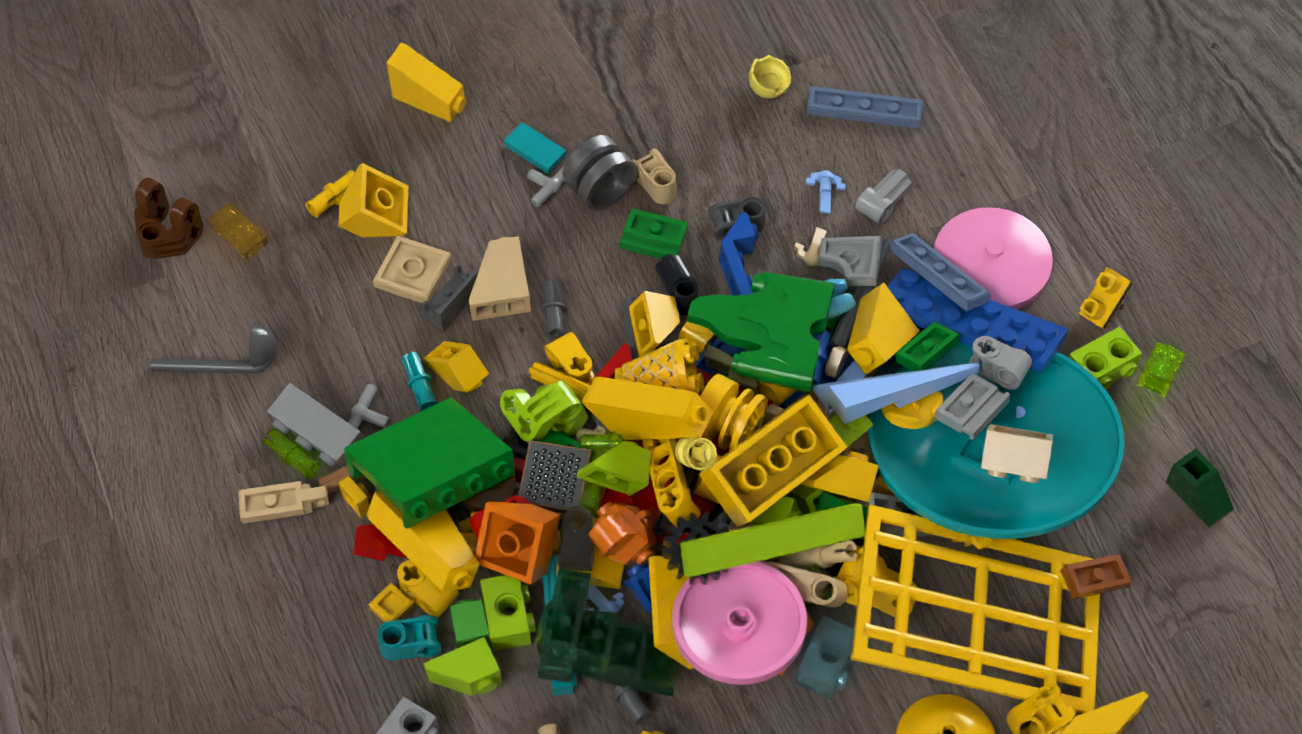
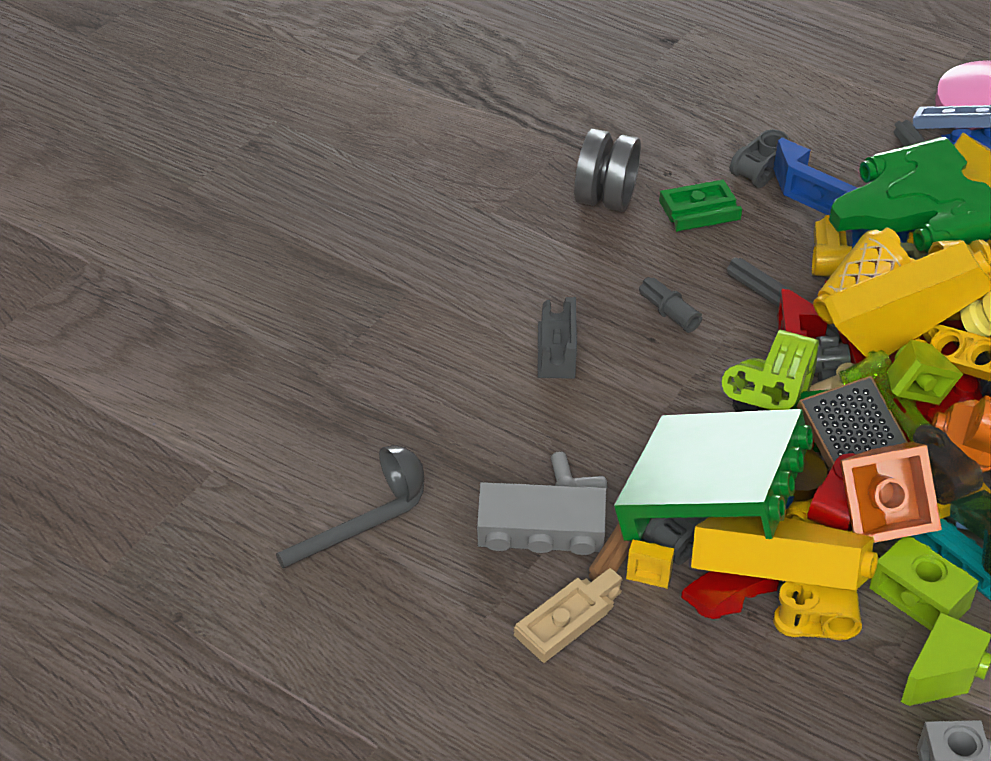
camera: 35 degrees left, 15 degrees down
(152, 211) = (175, 434): reddish brown piece -> none
(237, 230) = (262, 390): clear yellow plate -> none
(291, 453) = (535, 561): clear neon green pin -> none
(329, 196) = (342, 310): yellow pin -> none
(374, 204) = (397, 300): yellow slope -> none
(391, 604) = (793, 651): yellow tile -> none
(411, 638) = (853, 670): teal piece -> none
(412, 269) = (490, 339): tan tile -> none
(419, 381) = (604, 426): teal axle -> none
(424, 84) = (355, 179): yellow slope -> none
(457, 366) = (629, 391): yellow slope -> none
(469, 621) = (902, 618): bright green brick -> none
(501, 281) = (604, 301): tan slope -> none
(535, 148) = (510, 190): teal tile -> none
(548, 376) = (724, 358): yellow axle -> none
(549, 185) = (558, 211): light grey piece -> none
(570, 357) = (736, 333): yellow piece -> none
(653, 320) = (784, 263): yellow slope -> none
(656, 177) = (660, 161): tan piece -> none
(678, 282) = (777, 231): black piece -> none
(769, 77) = (672, 52): light yellow hair -> none
(811, 257) = (848, 156): tan piece -> none
(825, 179) = (807, 108): light blue piece -> none
(853, 257) = (892, 135): light grey tile -> none
(864, 107) = (770, 45): sand blue tile -> none
(880, 201) = (865, 95): light grey piece -> none

